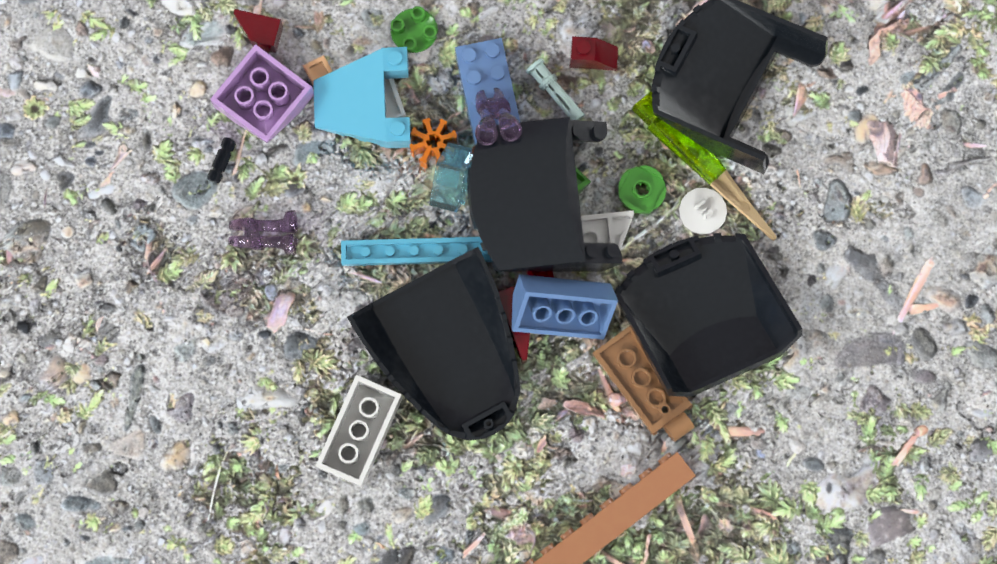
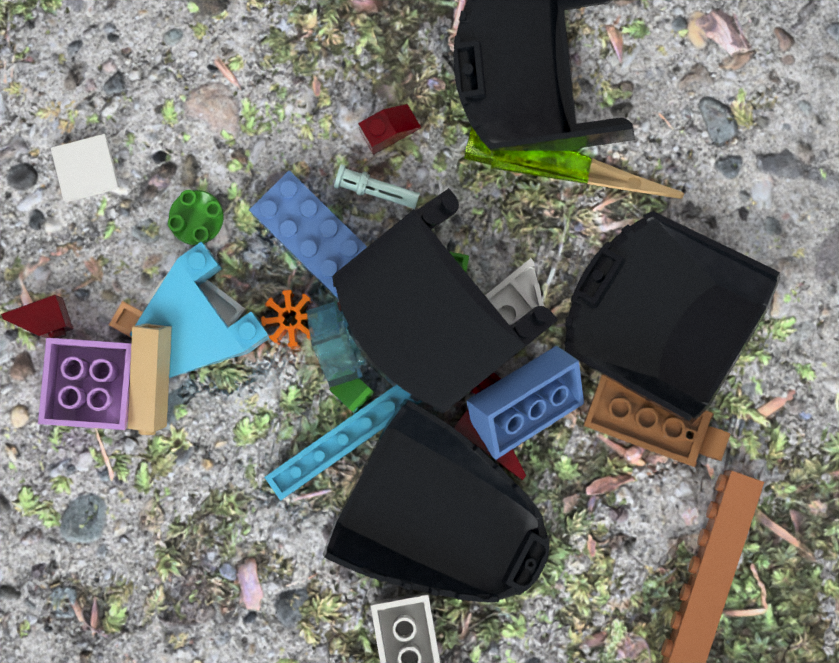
camera: 30 degrees left, 5 degrees up
(221, 160) = (91, 473): black axle -> none
(253, 239) = (178, 532): clear purple piece -> none
(307, 119) = (149, 378): none -> tan brick
(442, 222) = (353, 394): none -> bright green slope
(492, 109) = (333, 247): clear purple piece -> none
(642, 203) = (535, 219): bright green plate -> none
(702, 211) = (595, 213): white piece -> none

